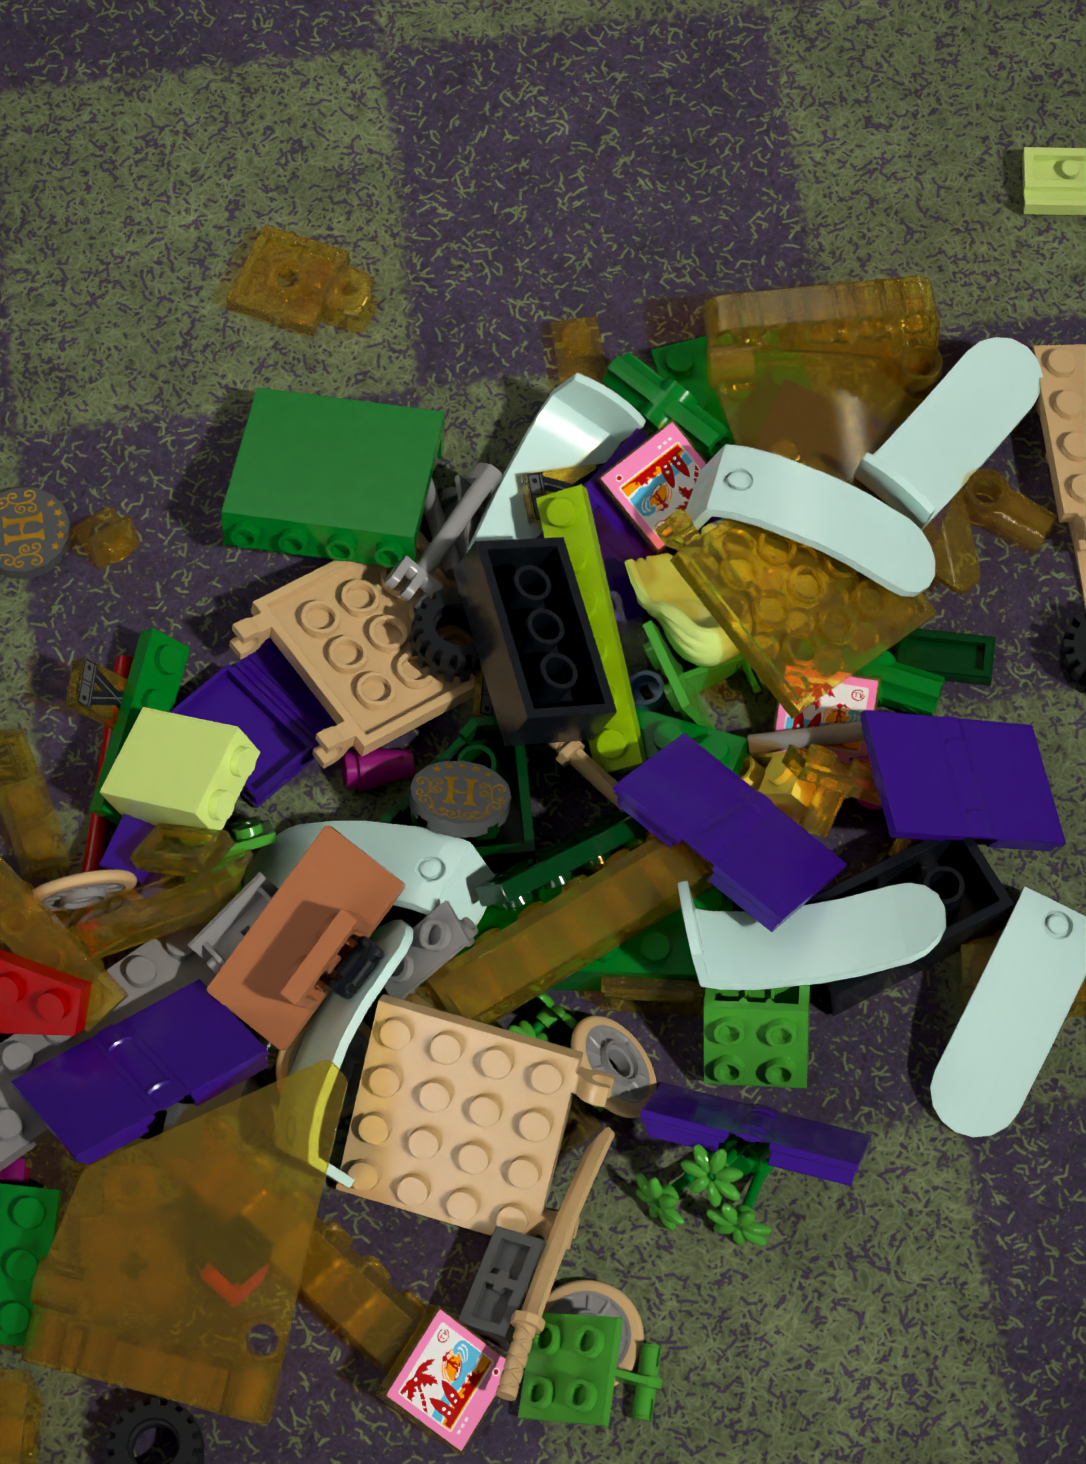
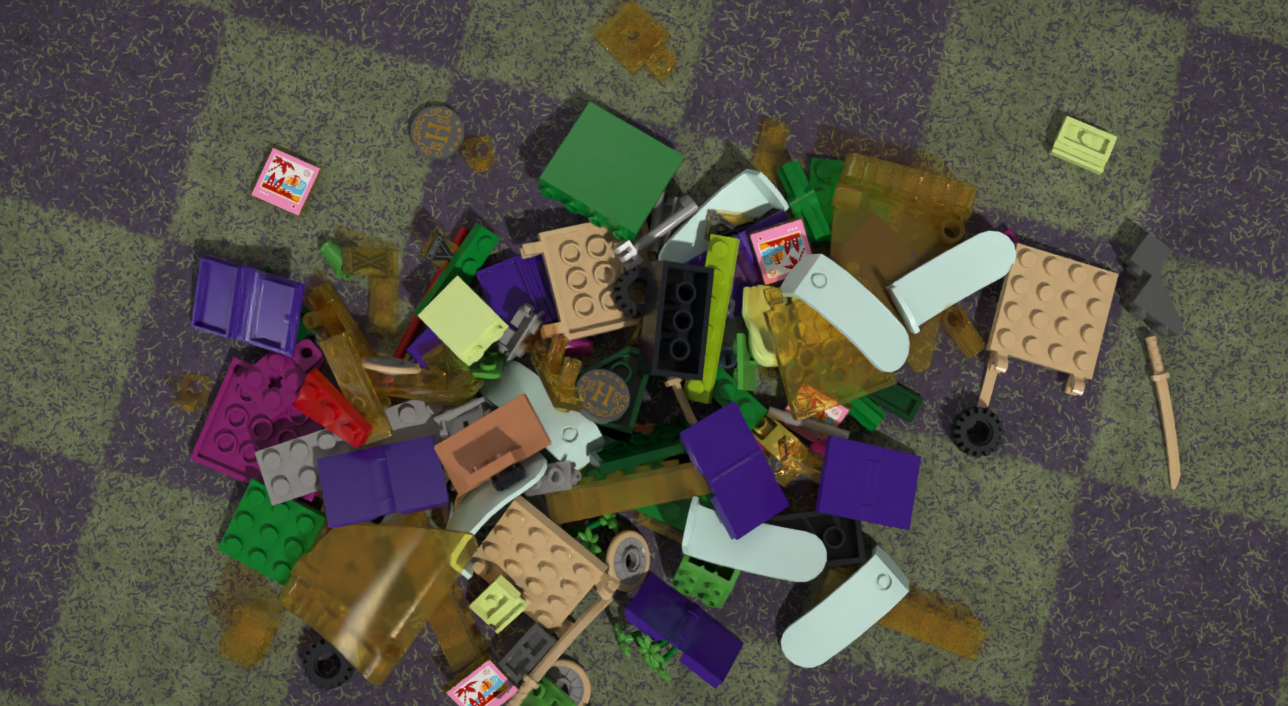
camera: 20 degrees right, 20 degrees up
(289, 752) = (527, 324): none -> light grey hinge
(366, 801) = (557, 376): none -> clear yellow plate
(420, 1220) = (499, 603): none -> yellowish green plate

